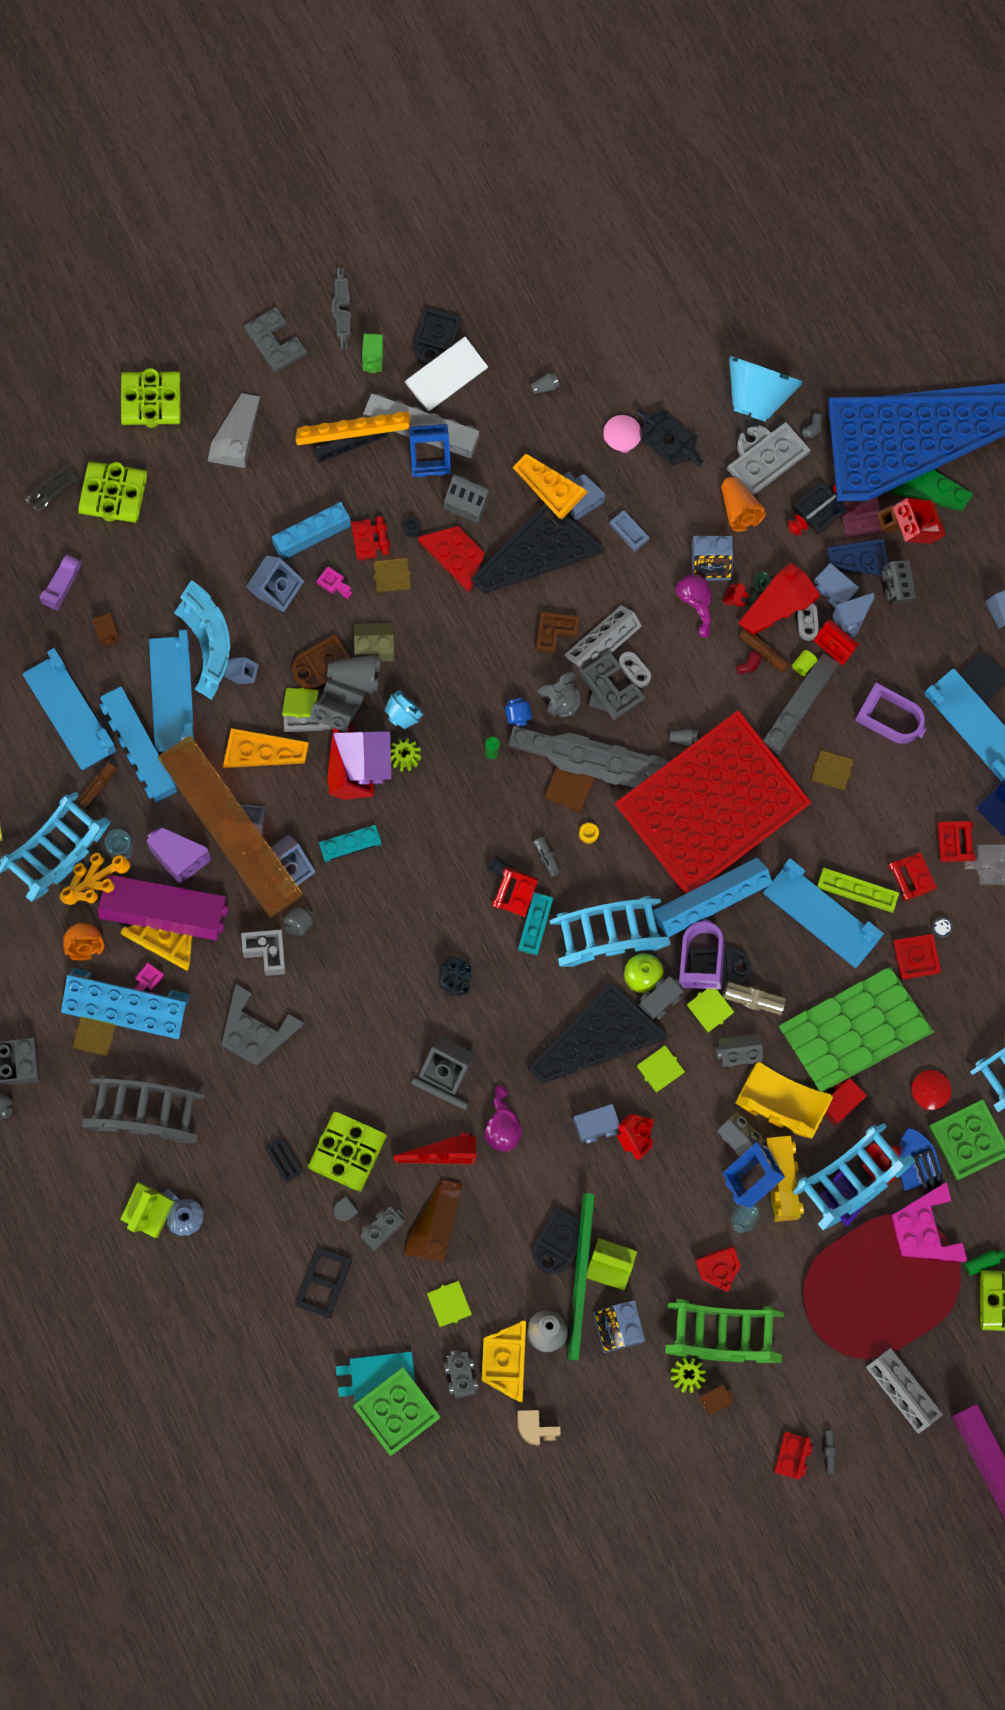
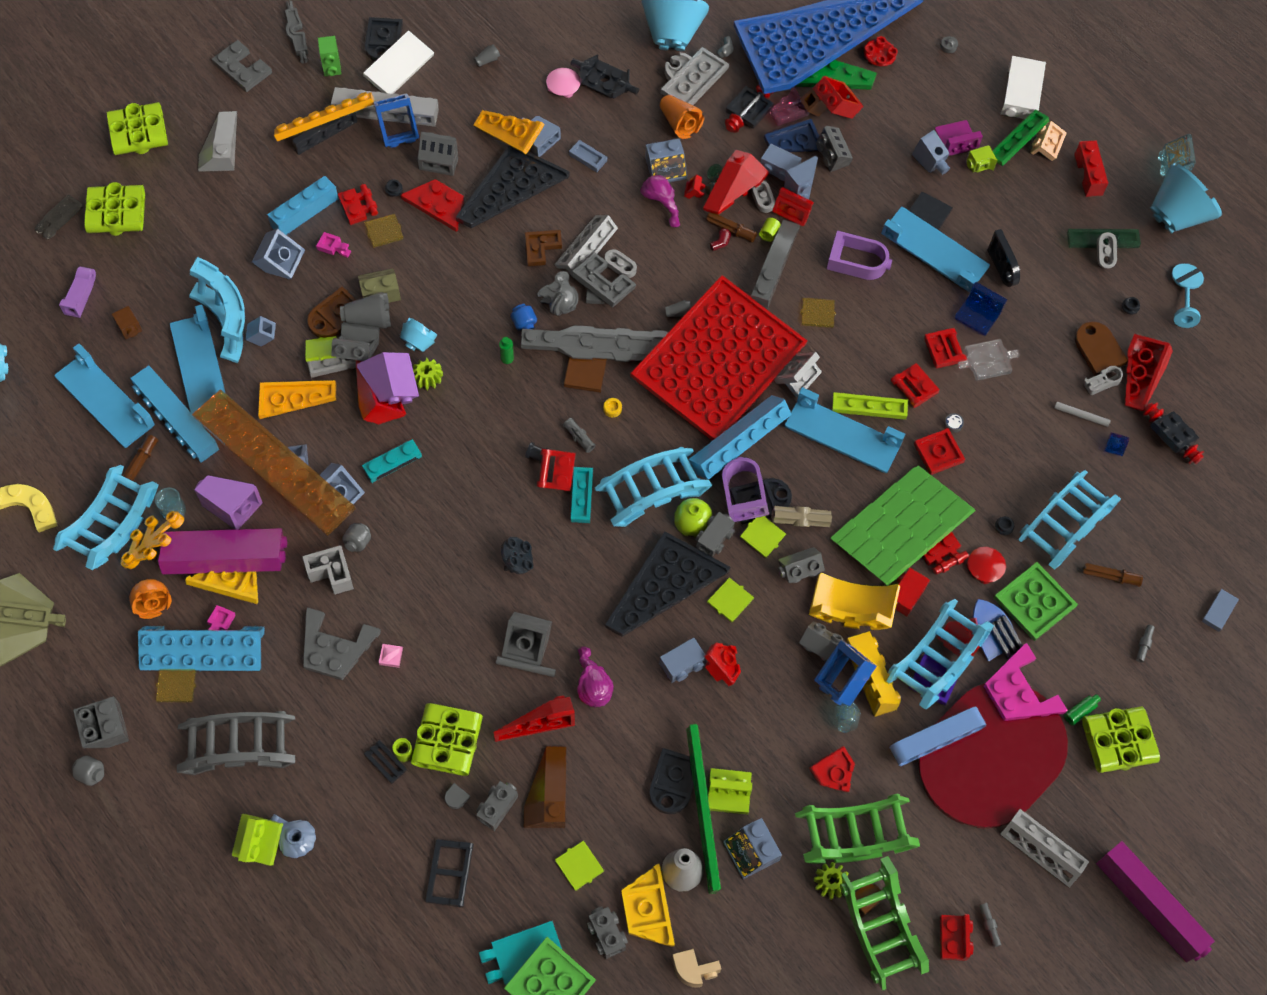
camera: 10 degrees left, 10 degrees down
(302, 1159) = (402, 742): none -> lime beam
(309, 1052) = (390, 655): none -> bright pink tile
(742, 1422) = (897, 914): none -> bright green fence
(793, 837) = (799, 372): none -> light grey bracket
(829, 1257) = (937, 736): none -> medium blue beam
(894, 1062) = (945, 547): none -> red plate
(962, 1052) = (1004, 525): none -> black plate
(984, 468) = (880, 52): none -> red dish

